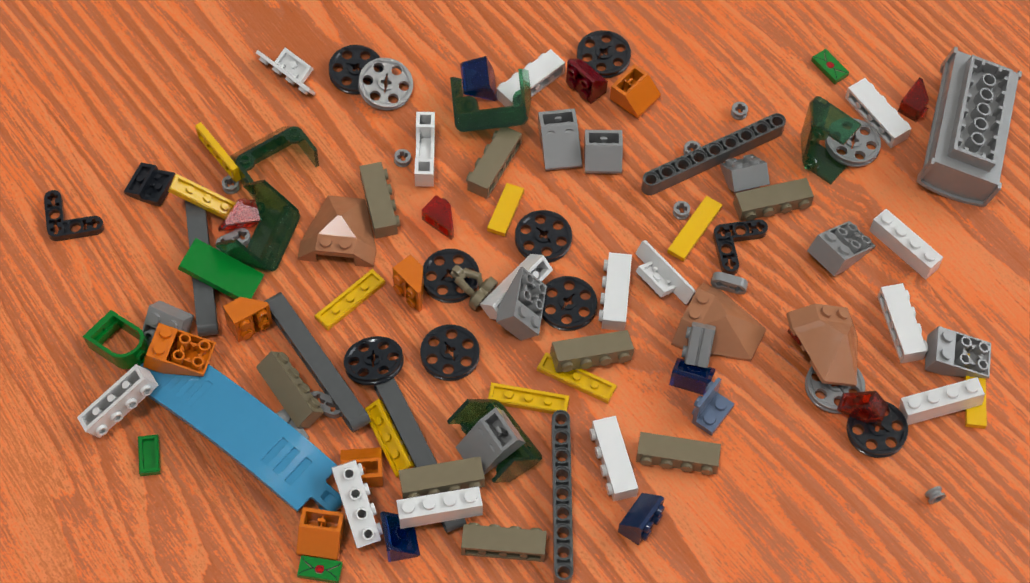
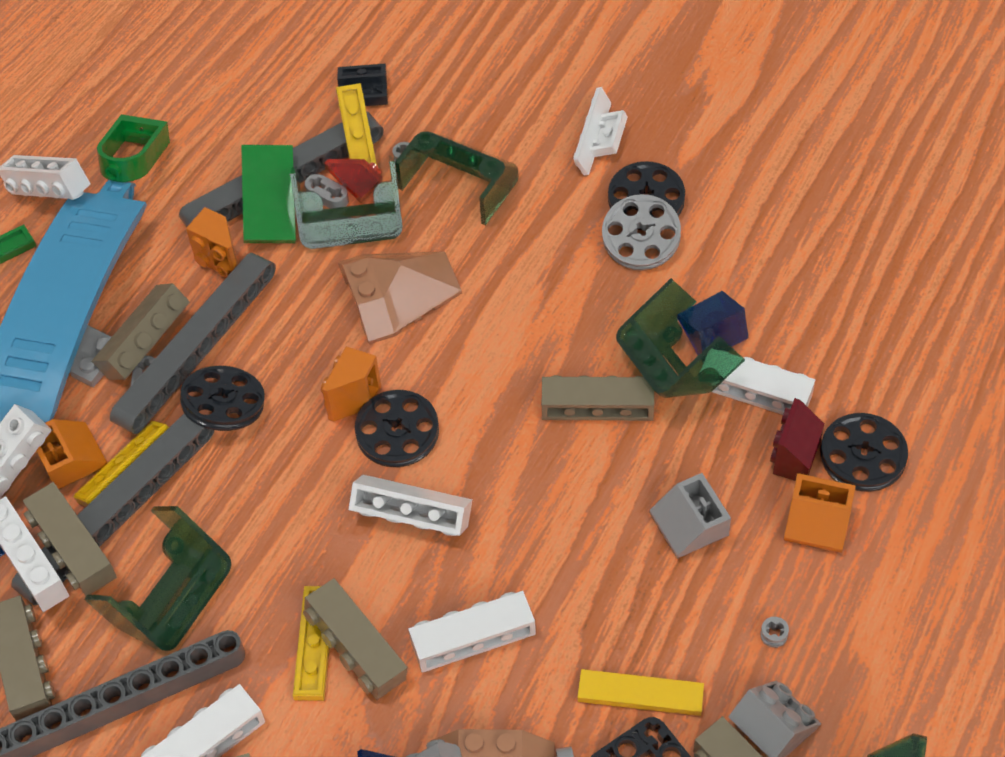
camera: 70 degrees right, 5 degrees down
(65, 225) = (257, 41): black beam -> none
(168, 315) = (175, 181): light grey slope -> none
(178, 352) = (126, 195): orange slope -> none
(218, 152) = (439, 112): yellow tile -> none
(350, 299) = (302, 337): yellow tile -> none
(378, 200) = (463, 301): dark tan brick -> none
(402, 152) = (545, 293): light grey bush -> none
(425, 149) = (592, 303): white arch -> none
(439, 216) = (477, 376): clear red slope -> none
(454, 346) = (281, 487): black wedge -> none
(485, 287) = (393, 472): dark tan piece -> none
(491, 439) = (156, 574): light grey slope -> none
(505, 209) = (534, 445): yellow tile -> none
(522, 306) = (380, 520): light grey slope -> none
(528, 398) = (254, 599): yellow tile -> none
(543, 229) = (509, 497): black wedge -> none
(559, 139) = (677, 453): light grey slope -> none
(572, 310) = (420, 569): black wedge -> none
(662, 275) = (527, 674): white bracket -> none
(676, 212) = (656, 670): light grey bush -> none
(707, 156) = (790, 675): dark grey beam -> none
(734, 112) = (887, 659): light grey bush -> none

